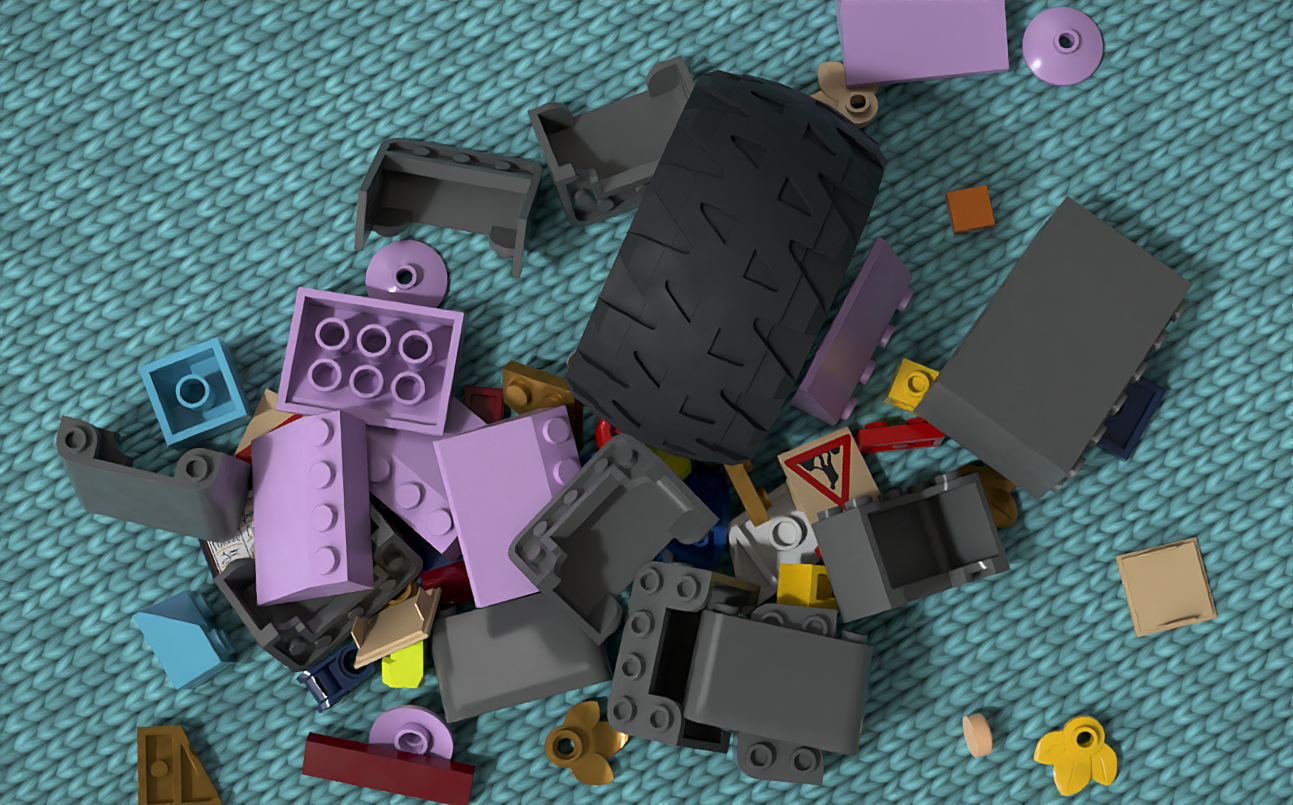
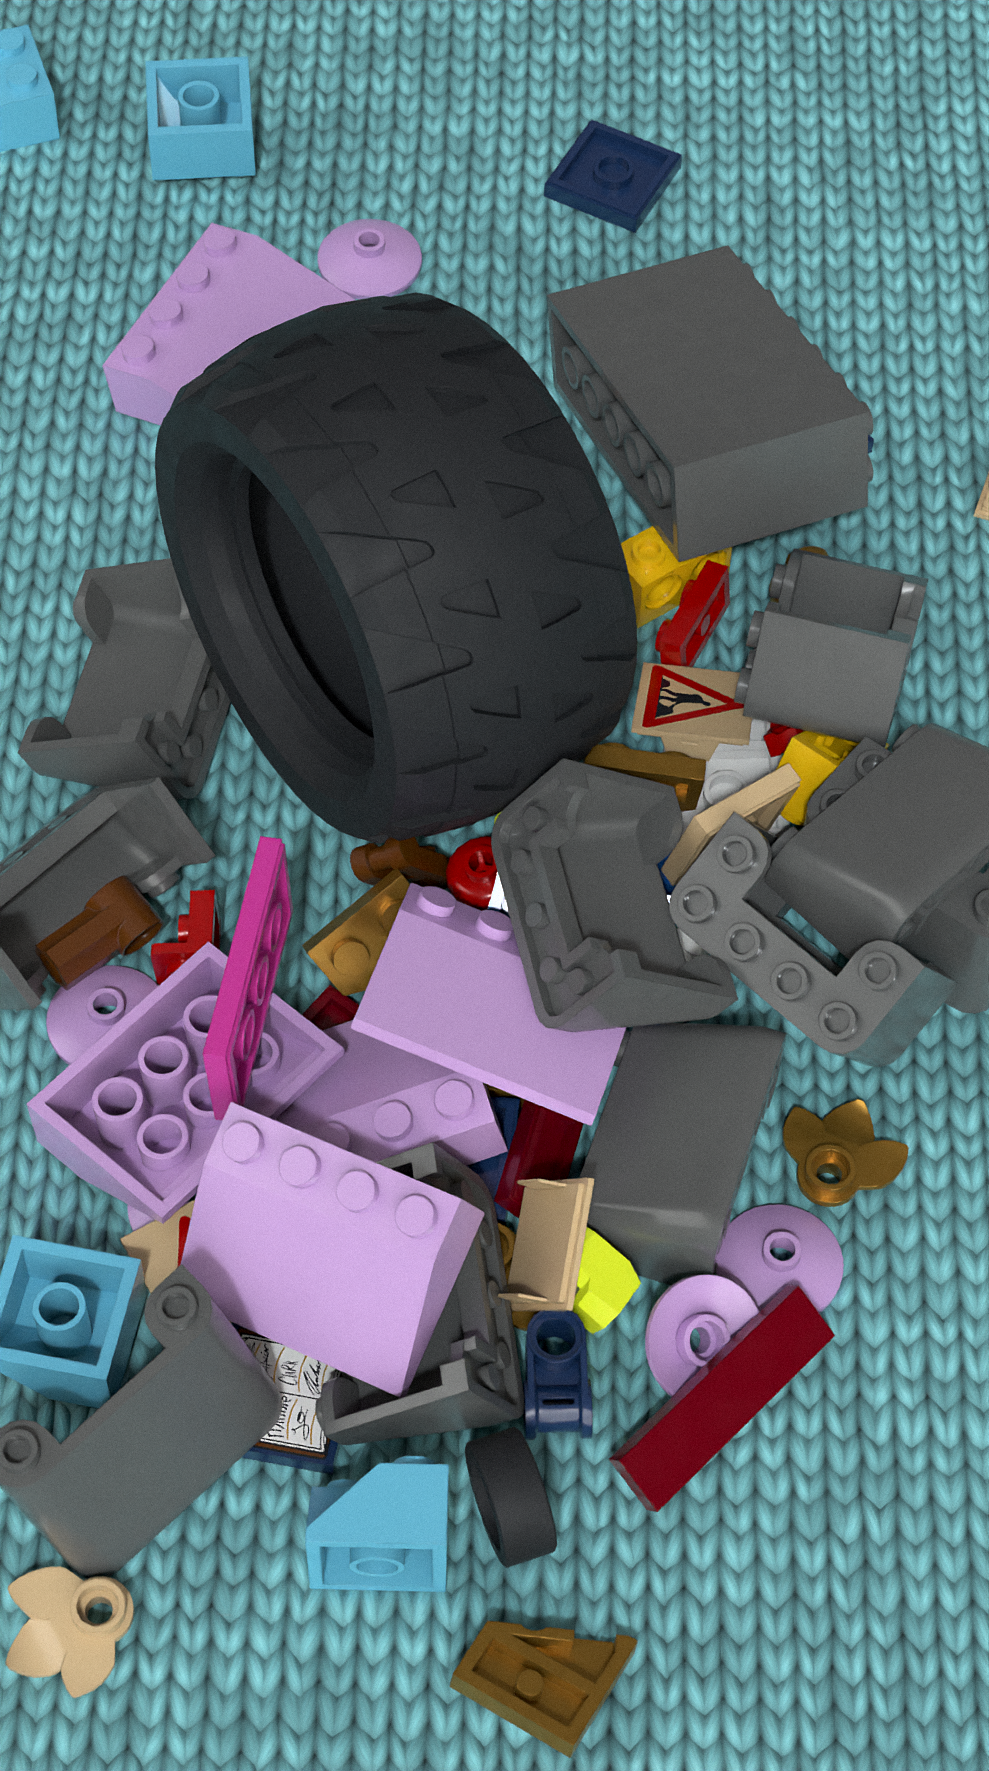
camera: 55 degrees left, 25 degrees down
(44, 509) = (58, 1629): none -> tan plate
(248, 696) = (511, 1497): none -> black tyre
(430, 362) = (249, 977): none -> dark pink tile
(456, 243) = (112, 923): none -> reddish brown piece
(483, 297) = (194, 931): none -> red bracket
(519, 745) = (748, 1262): none -> lavender dish
(736, 563) = (758, 802): none -> tan tile
(1244, 154) = (613, 175): none -> dark blue tile

